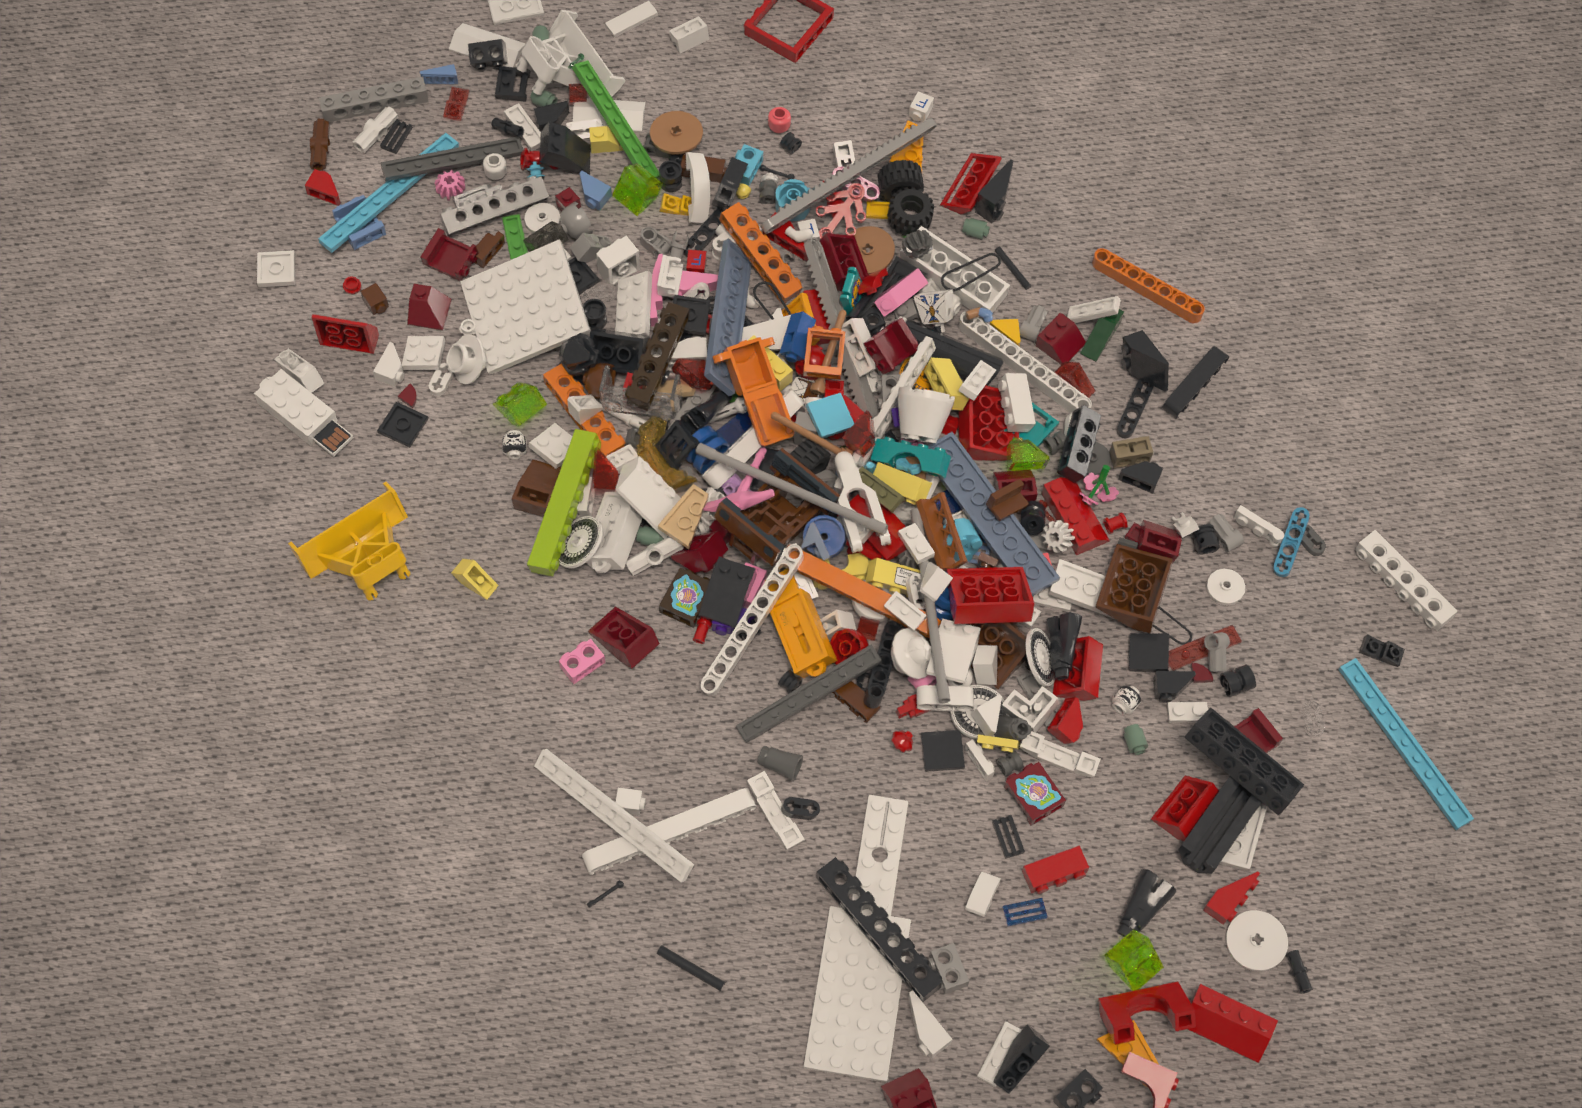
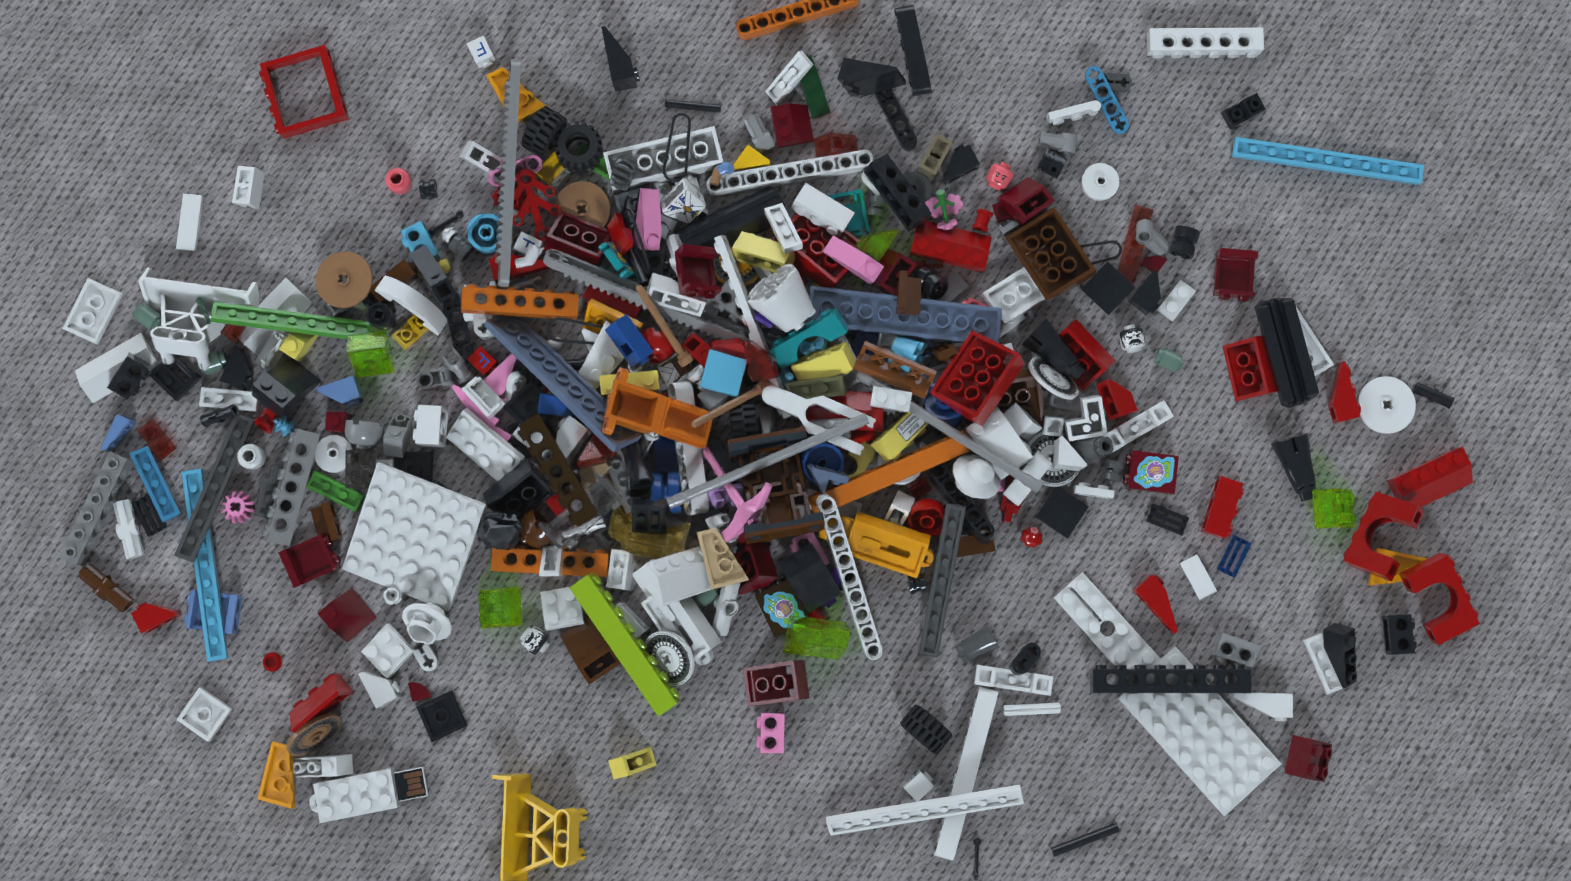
camera: 45 degrees left, 20 degrees up
(267, 347) = (278, 777): none -> light orange wing
(319, 341) = (313, 734): none -> piece
(374, 299) = (303, 654): reddish brown brick -> none
(422, 123) = (155, 484): none -> dark azure plate
(595, 313) = (466, 483): black wheel -> none
(604, 472) = (626, 592): clear red slope -> none
(679, 767) = (926, 729): none -> black tyre
(683, 635) = (816, 637): none -> clear neon green slope
(703, 321) = (552, 405): none -> blue slope
(765, 847) = (1031, 709): none -> white axle
(824, 371) = (679, 347): orange window -> none
(905, 611) = (940, 455): white plate -> none
(914, 590) = (925, 429): white beam -> none
(934, 581) = (935, 411): white slope -> none
(937, 871) = (1156, 599): none -> red slope
(972, 184) = (589, 70): red slope -> none
(976, 228) = (633, 105): sand green brick -> none
(989, 742) = (1089, 473): light yellow plate -> none
(999, 448) = (853, 260): none -> bright pink slope
(1003, 688) = (1053, 425): none -> white tile
(1064, 536) = (964, 278): white gear -> none
(1160, 510) = (999, 176): none -> coral head
(1185, 525) = (1030, 170): white plate -> none
(1244, 761) = (1258, 297): black bracket -> none

